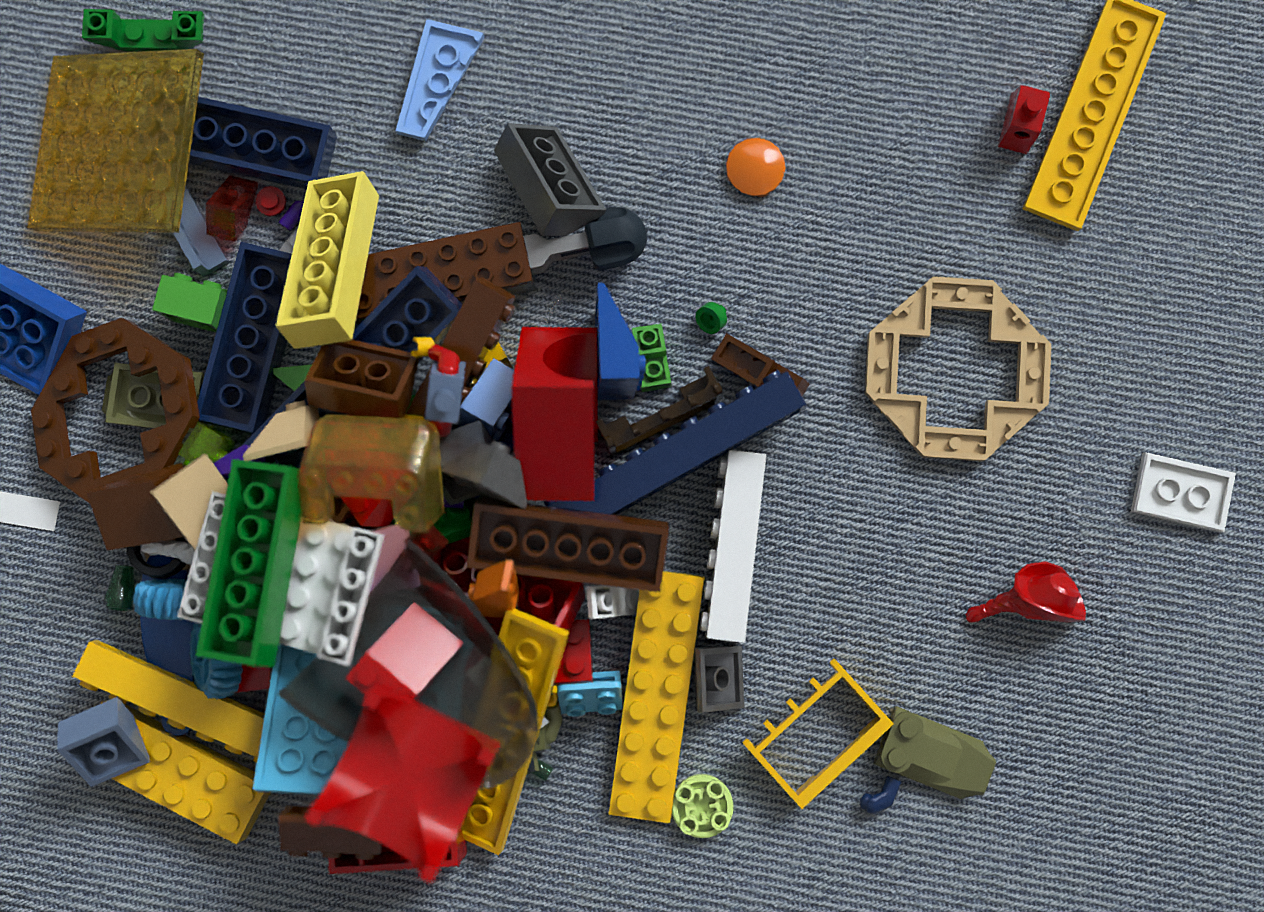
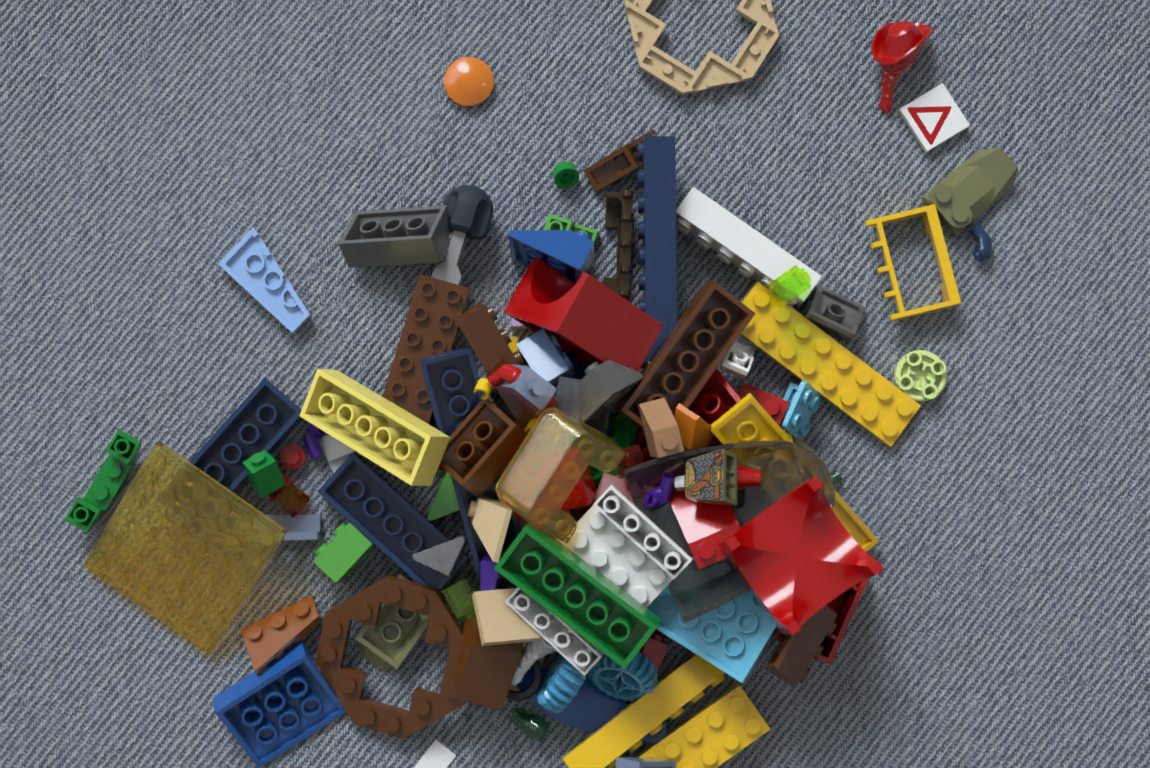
camera: 65 degrees left, 0 degrees up
(81, 280) = (276, 632): none -> dark orange wing
(229, 177) = (263, 473): none -> green brick
(229, 404) = (443, 556): none -> flat silver slope
(410, 594) = (661, 493): none -> dark purple arm
(449, 639) = (710, 478): none -> torso
(471, 668) = (747, 477): none -> red cone
(476, 556) = (660, 428): none -> medium nougat slope
(714, 614) = (790, 285): none -> clear neon green brick
(989, 673) = (934, 118): none -> white tile

